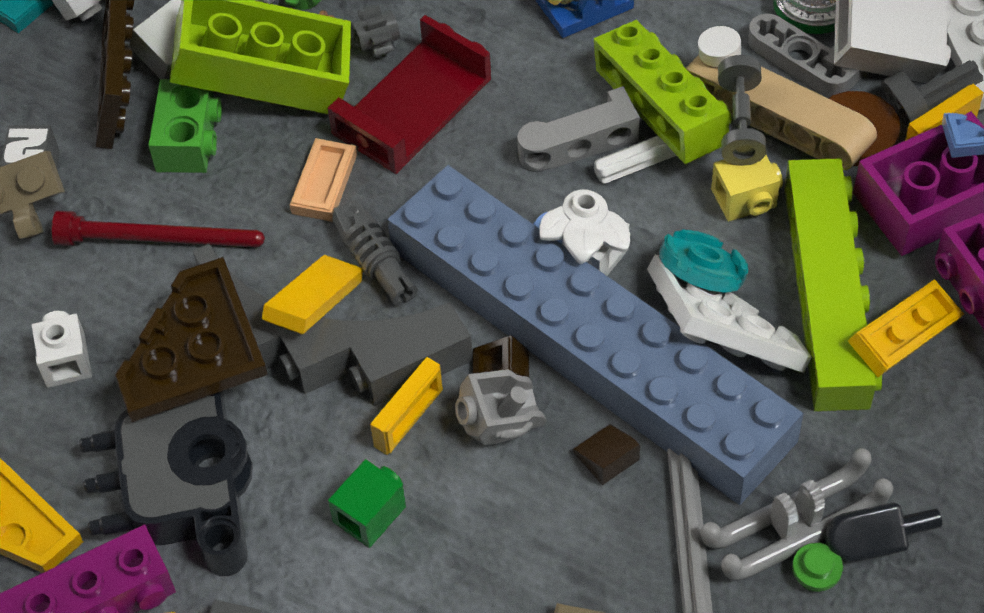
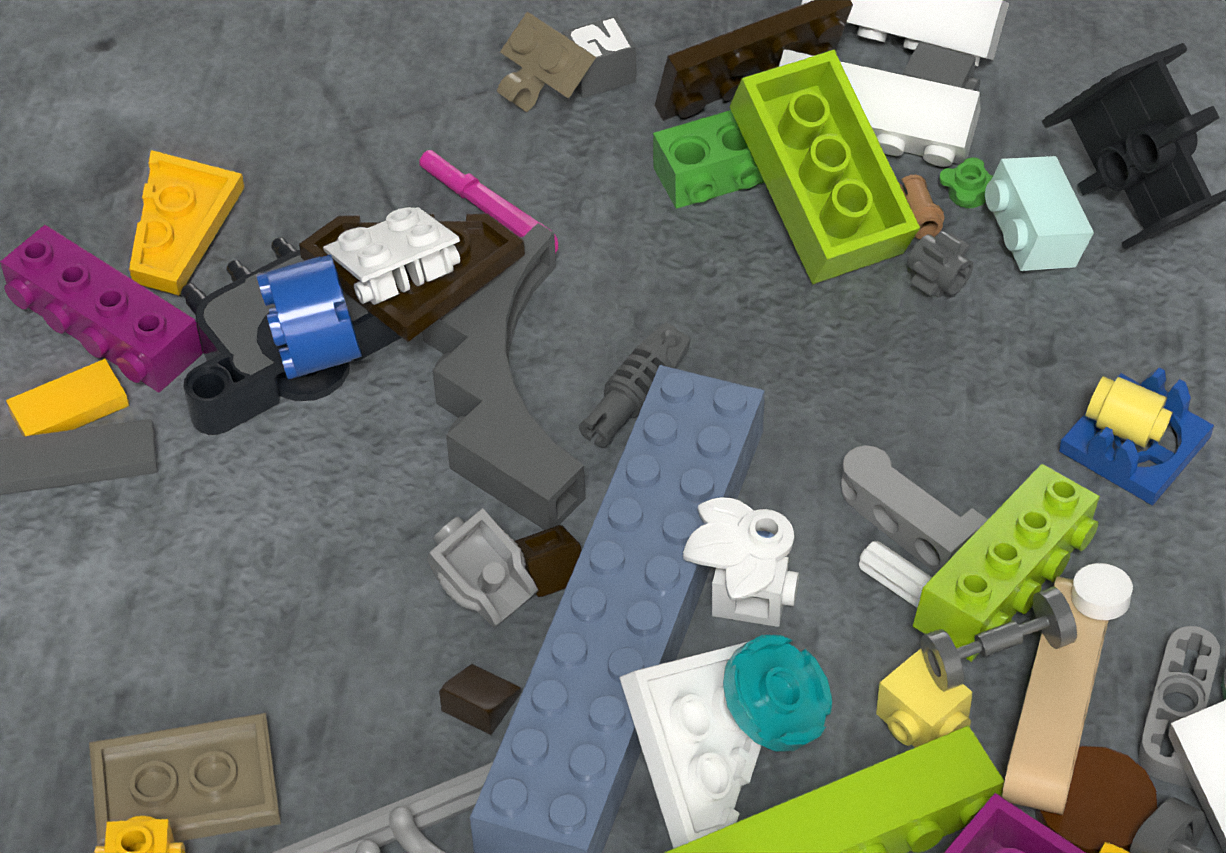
camera: 65 degrees right, 5 degrees down
(59, 341) = (383, 180): white brick -> none
(70, 228) = (534, 127): dark red piece -> none
(125, 287) = (485, 199): none -> dark pink piece
(189, 341) = (381, 251): none -> white hinge
(222, 421) = (309, 316): none -> blue brick
(312, 294) = (535, 343): yellow tile -> none
(323, 179) = (718, 306): light nougat tile -> none
(368, 502) = (312, 499): green brick -> none
(406, 406) = (446, 486): yellow tile -> none
(414, 97) = (871, 342): dark red panel -> none

